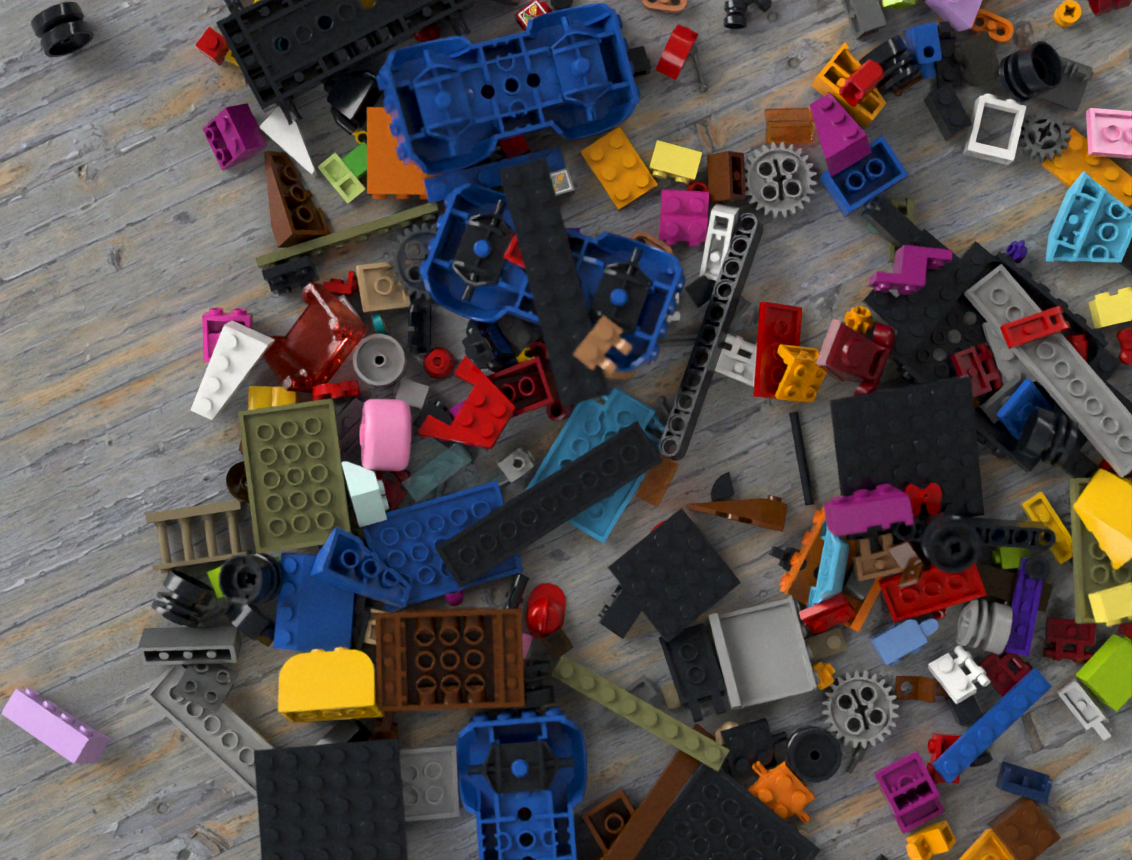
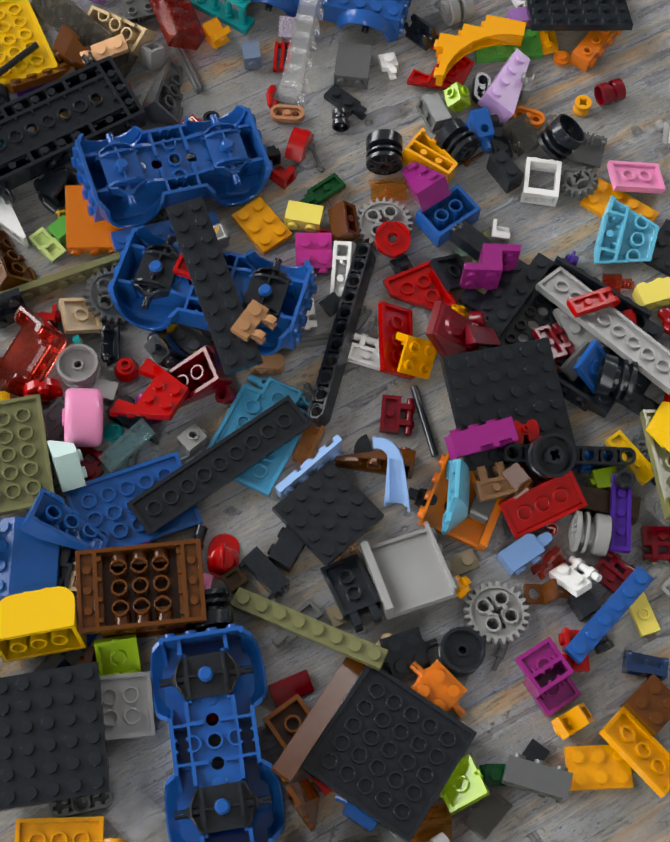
camera: 10 degrees left, 20 degrees down
(420, 446) = (112, 432): none -> teal tile
(420, 728) = (118, 655): none -> lime plate
(594, 640) = (266, 573): none -> black brick
(614, 775) = (290, 686): none -> dark red slope
(652, 96) = (282, 176): none -> red panel
(664, 509) = (309, 467): none -> light blue wing
(703, 124) = (324, 190): none -> dark green hinge
(760, 537) = (396, 482): none -> light blue animal
(761, 448) = (390, 415): none -> dark red plate
(790, 75) = (384, 152): none -> black wheel
(795, 241) = (400, 264): none -> black tile
(801, 209) = (382, 241): none -> red plate
(818, 276) = (418, 287): none -> red plate
(827, 613) = (459, 532): red plate -> none
(859, 259) = (448, 270): none -> black plate
(861, 82) = (437, 144): red brick -> none
(886, 366) = (481, 336): none -> dark red slope
(928, 205) = (499, 234): none -> white panel
(933, 650) = (550, 561): none -> clear red plate
(1033, 727) = (643, 616): none -> light yellow plate
(1069, 287) = (617, 282): none -> clear red plate

